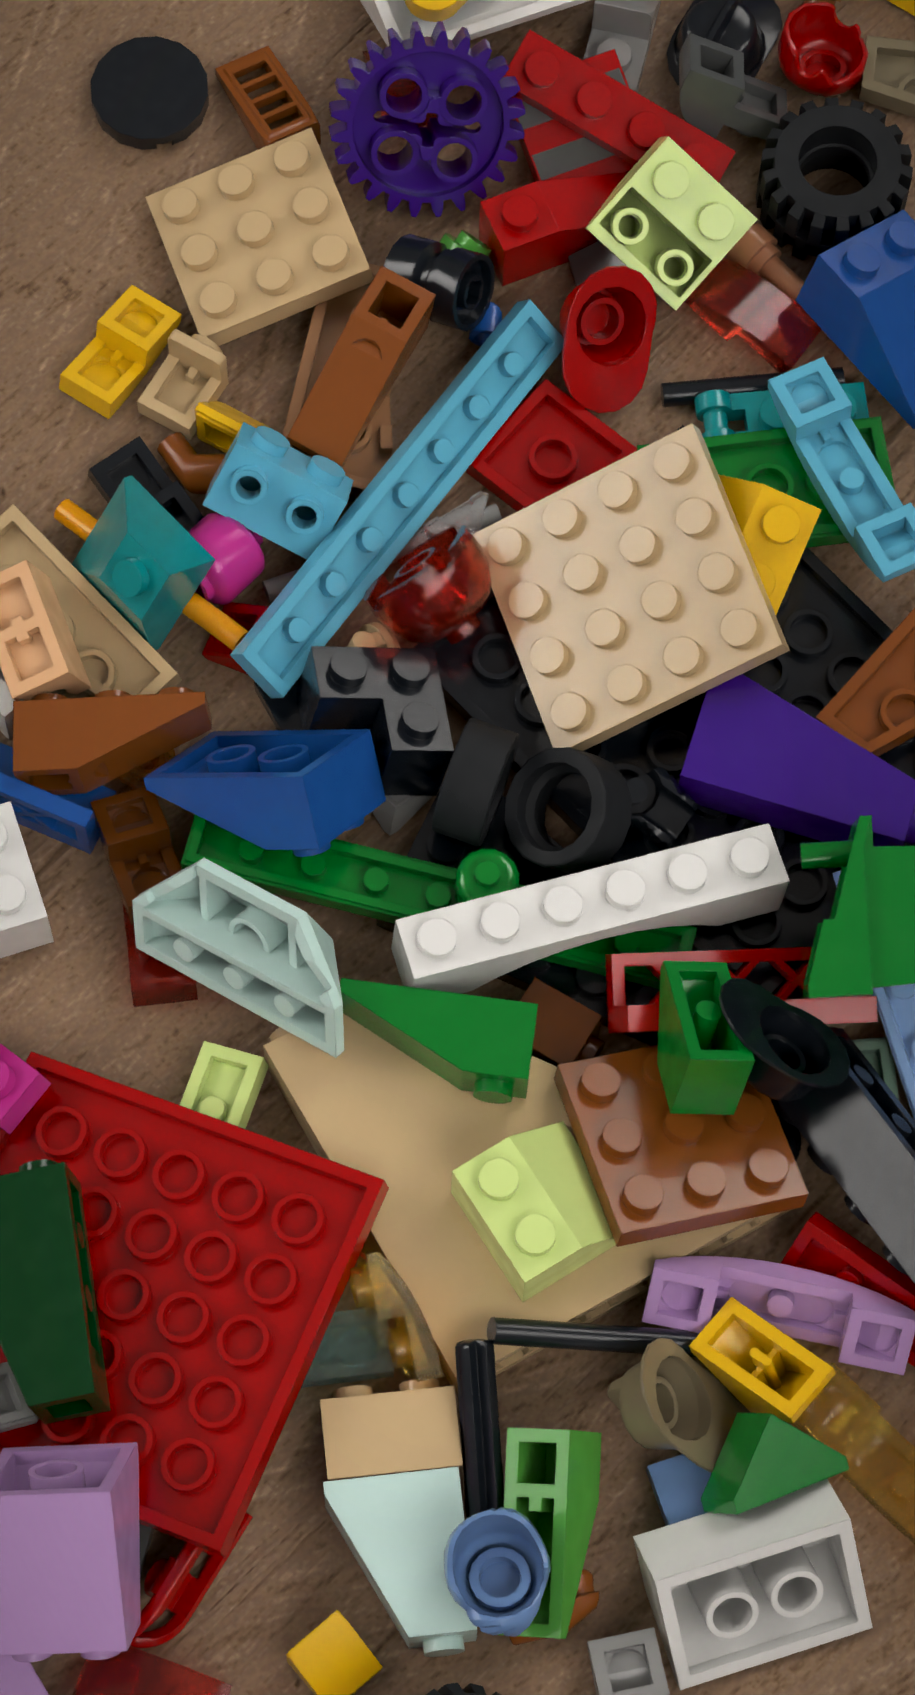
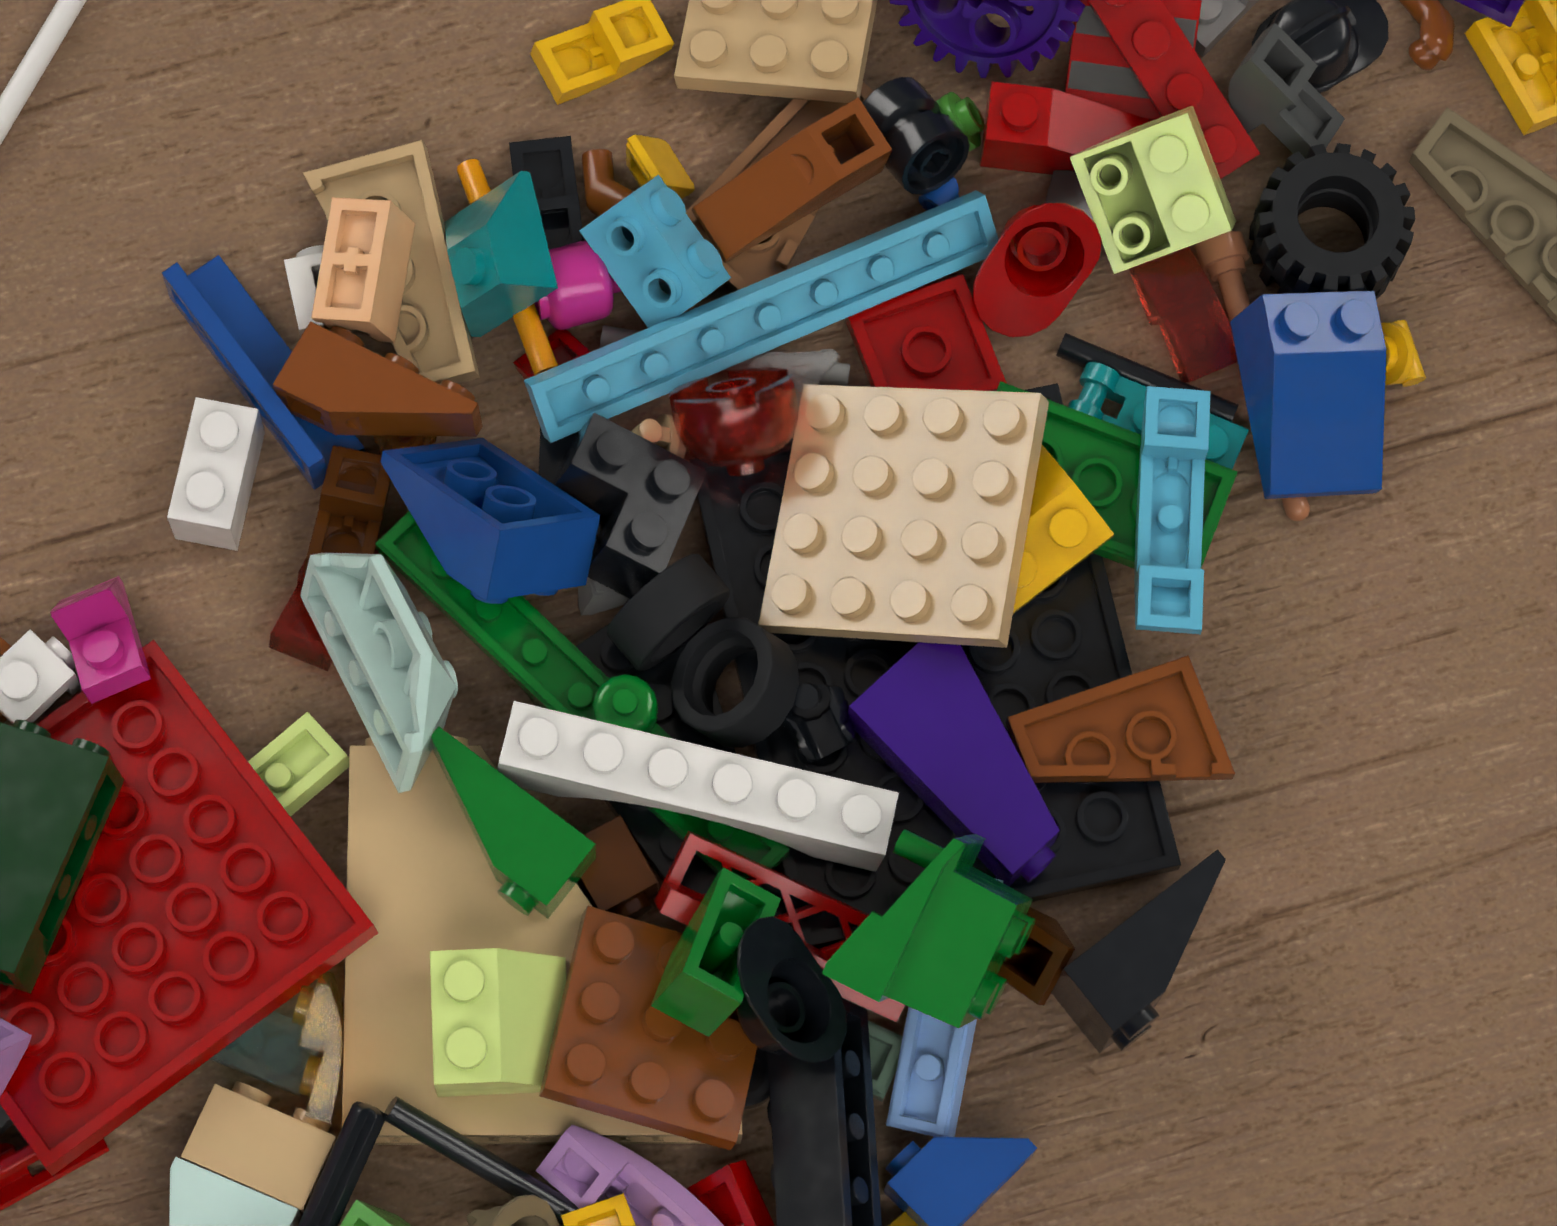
camera: 25 degrees right, 5 degrees up
(189, 375) = (640, 106): tan bracket -> none
(821, 51) = (1396, 99): red hair -> none

